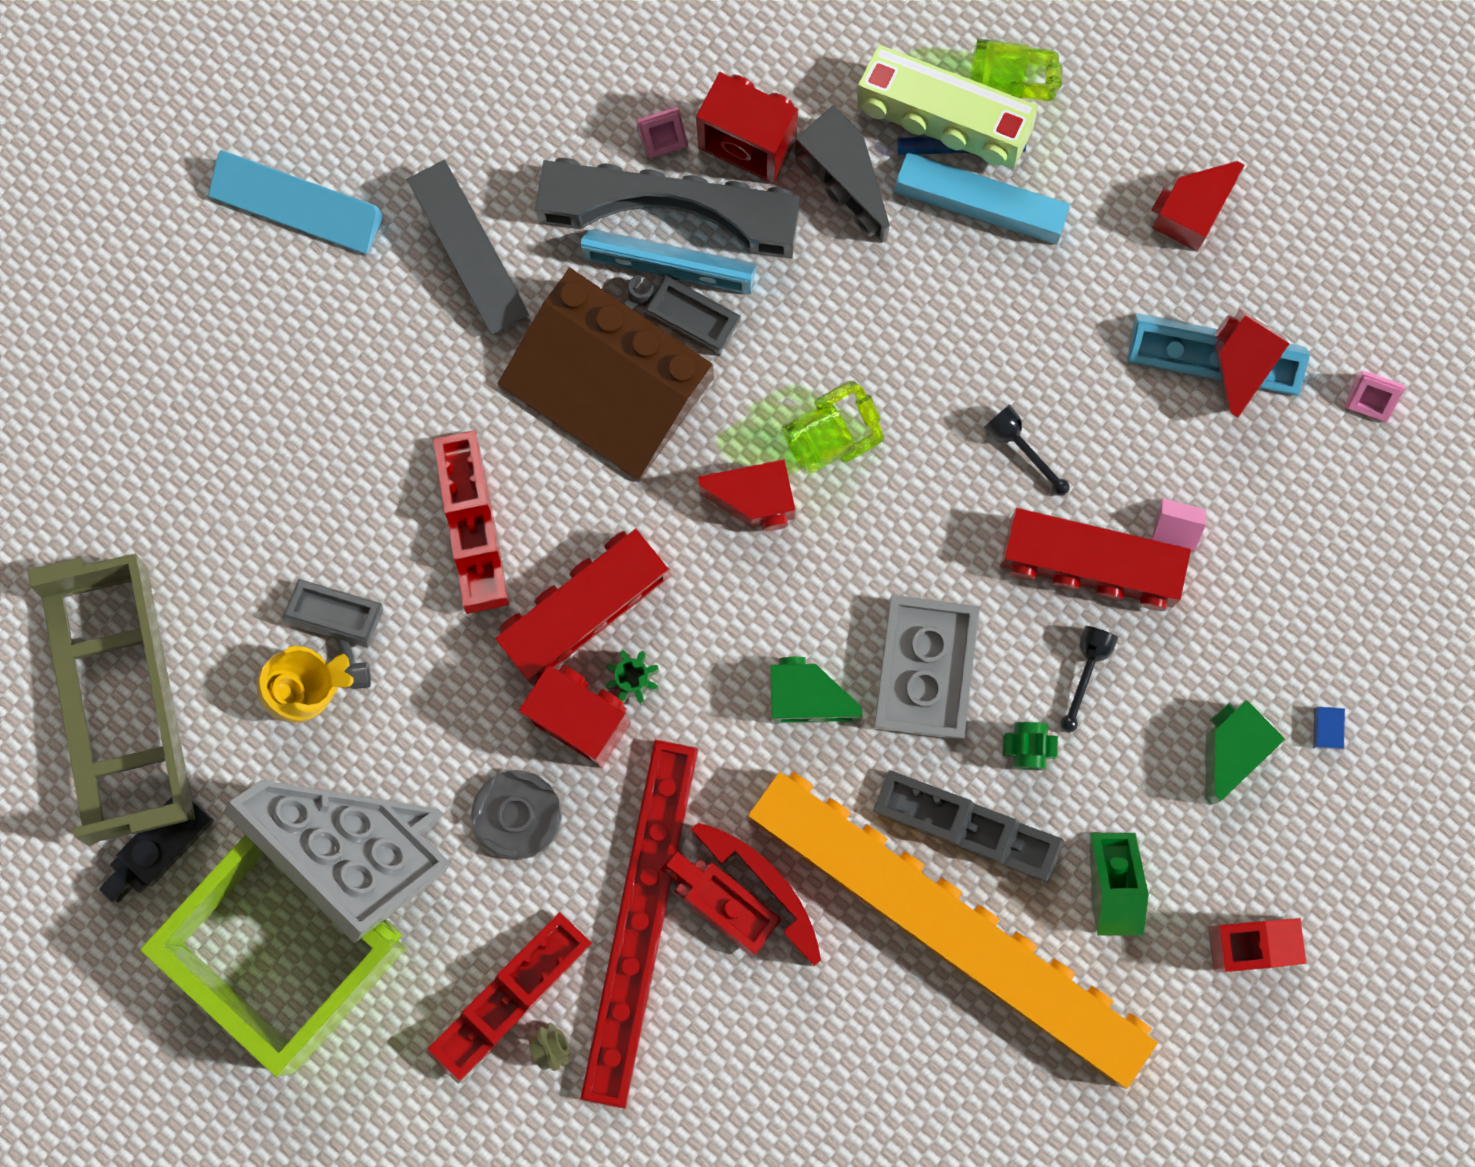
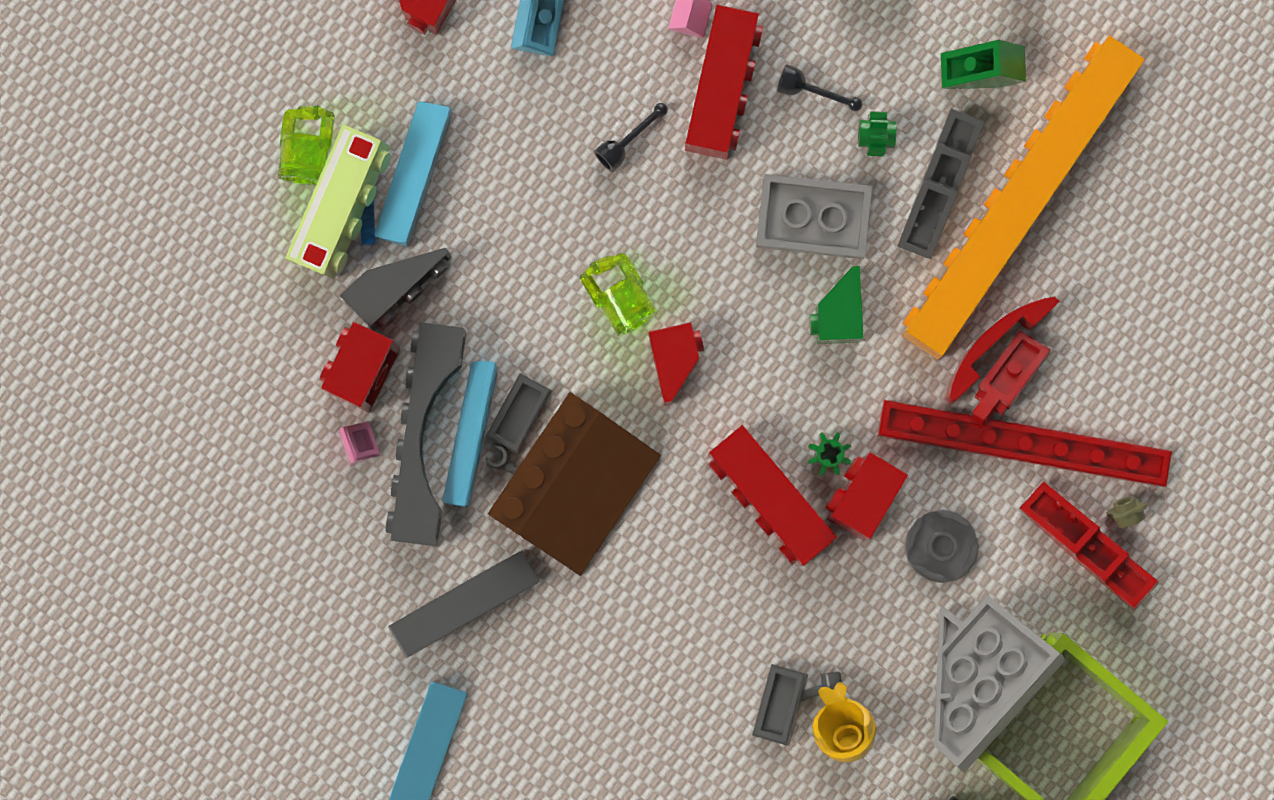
camera: 90 degrees left, 5 degrees up
(470, 522) = (700, 592): red slope -> none

